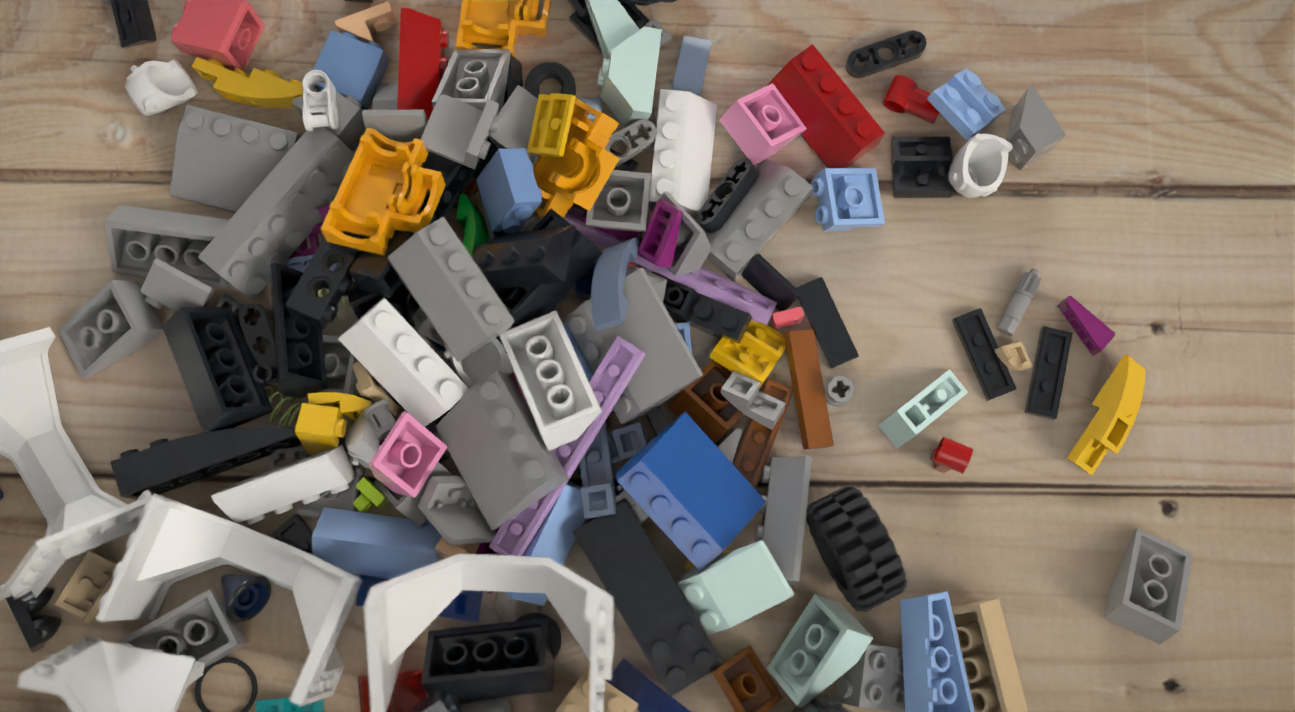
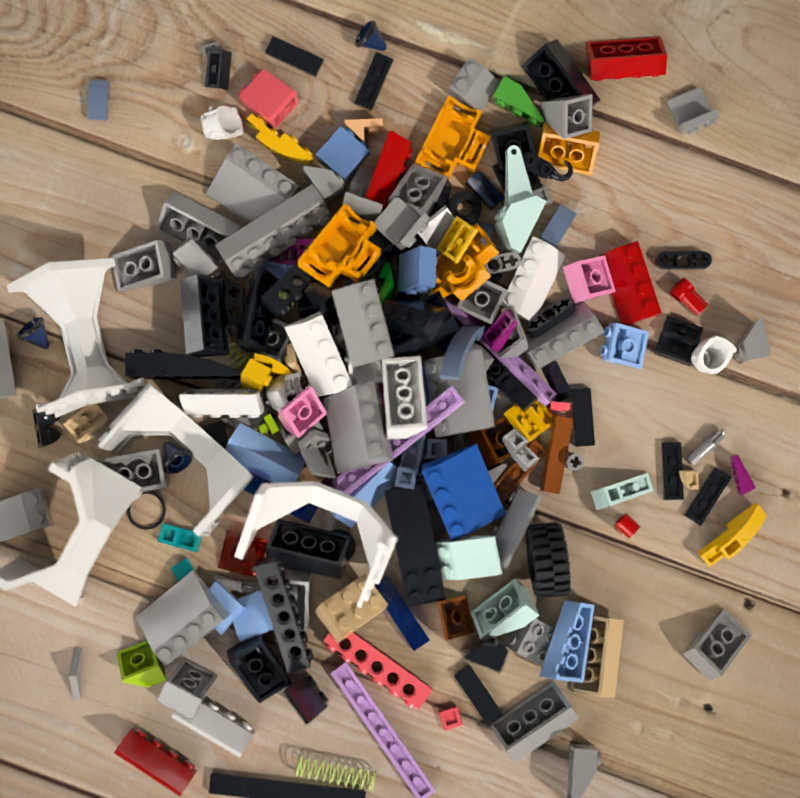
camera: 15 degrees right, 5 degrees up
(319, 107) = (319, 179): white piece -> none
(570, 54) = (484, 190): none -> slope
(966, 104) = (720, 312): light blue plate -> none

